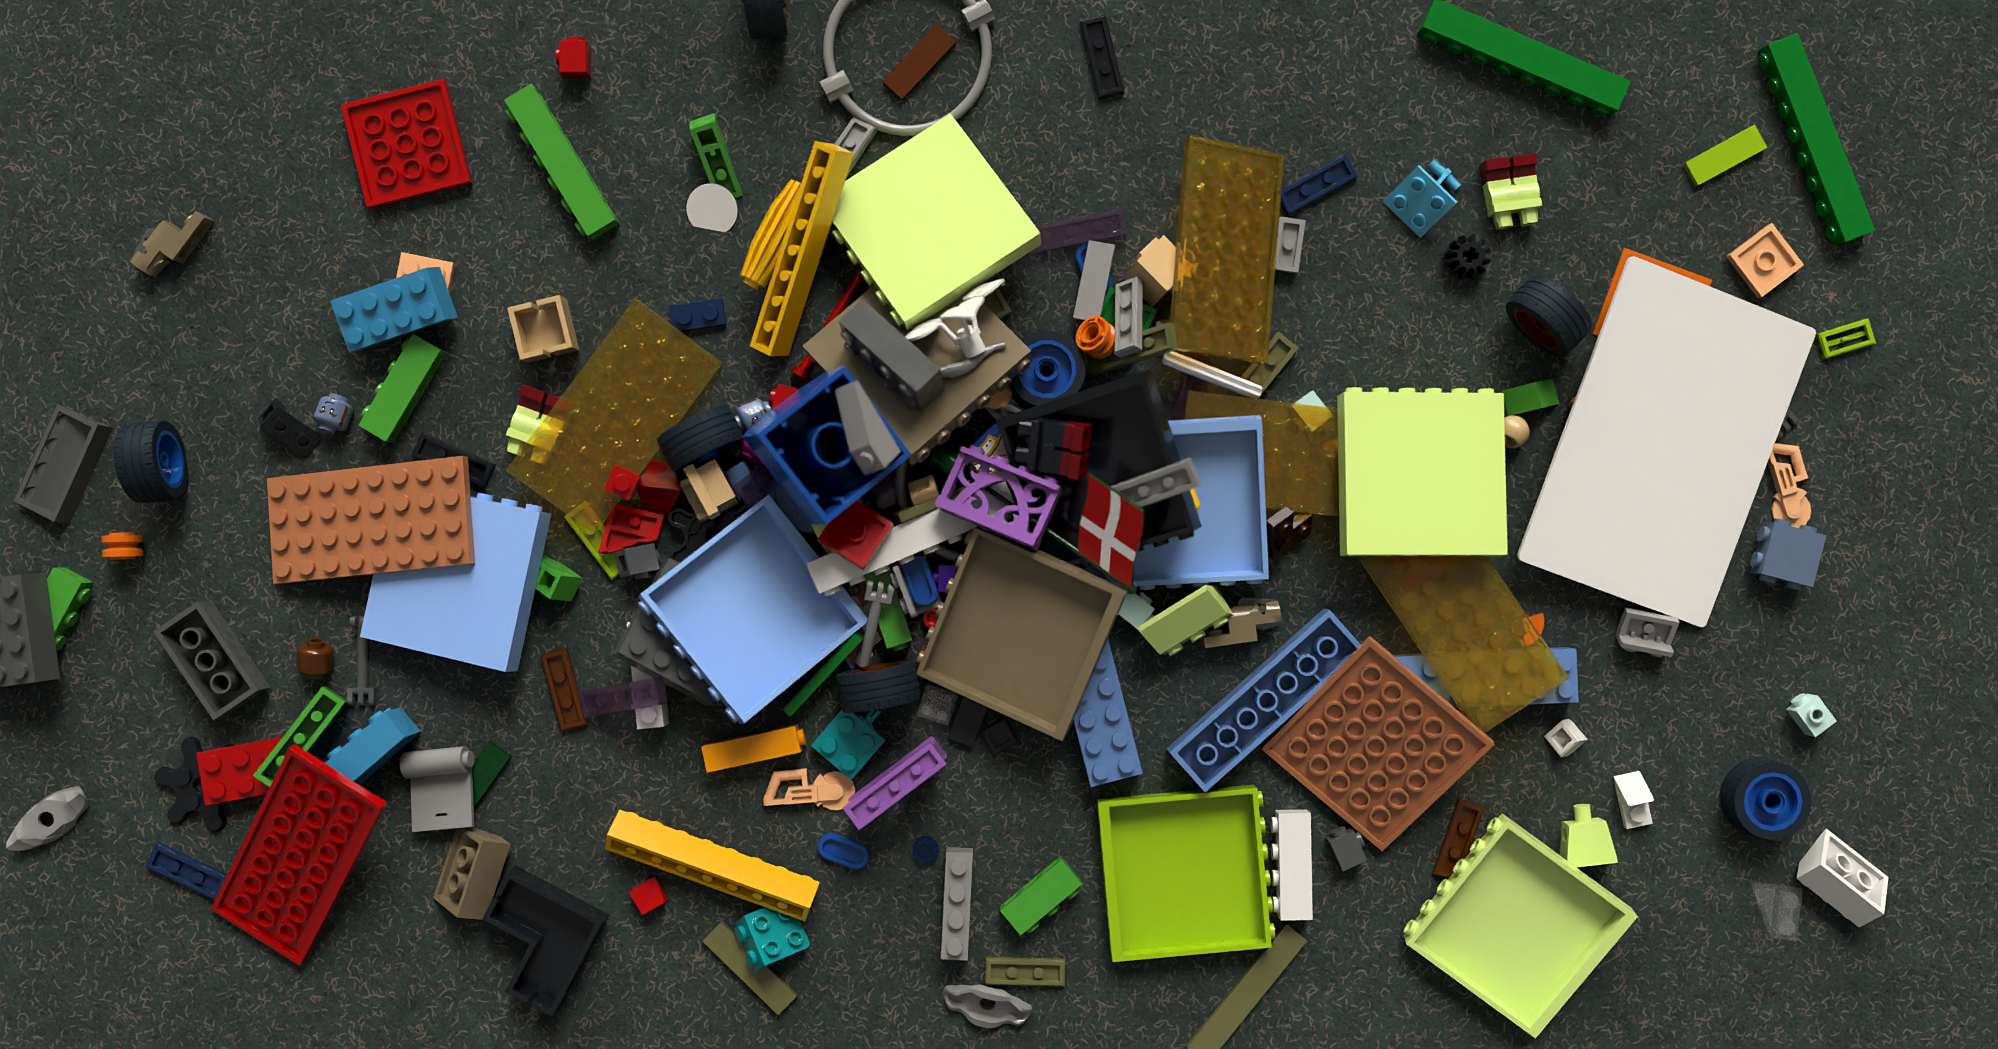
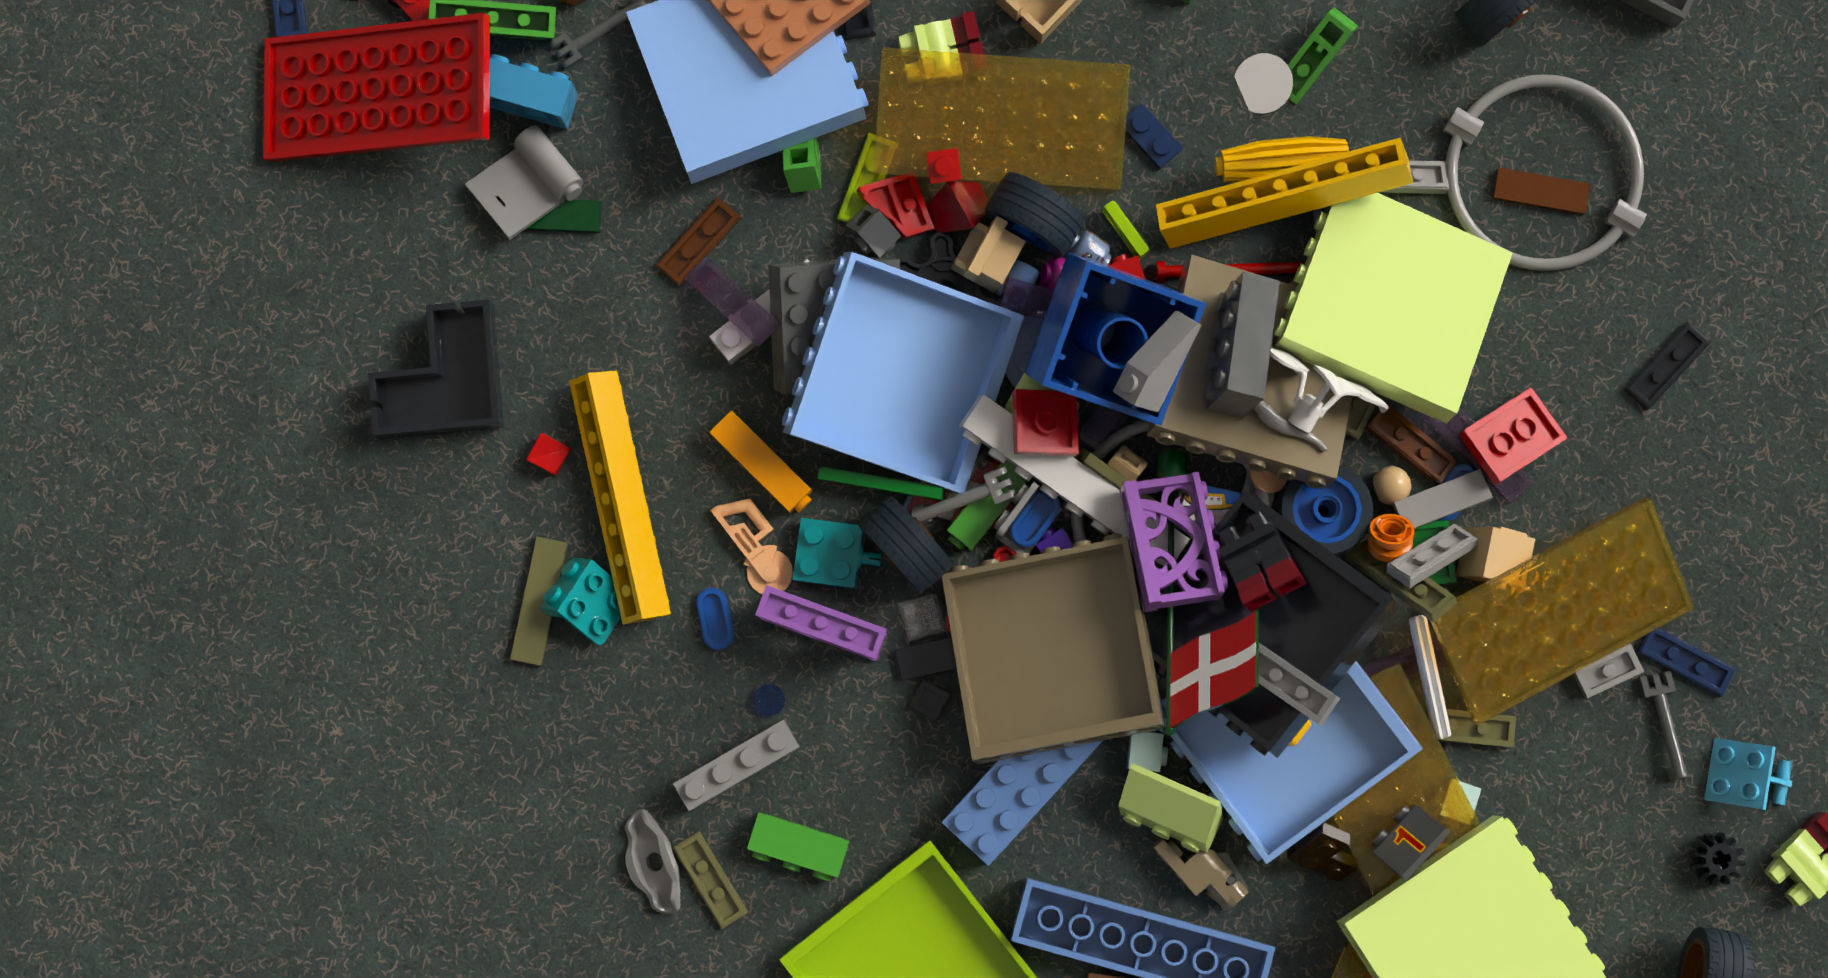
camera: 55 degrees right, 5 degrees down
(471, 872) = (462, 266): dark tan slope -> none
(756, 378) = (1125, 229): none -> lime tile
(1040, 276) = (1412, 445): none -> reddish brown tile
(1059, 310) = (1391, 484): none -> tan piece
(1081, 201) = (1513, 436): none -> plate
(1318, 469) = (1408, 841): none -> dark grey slope
(1389, 242) = (1659, 692): none -> dark grey hinge

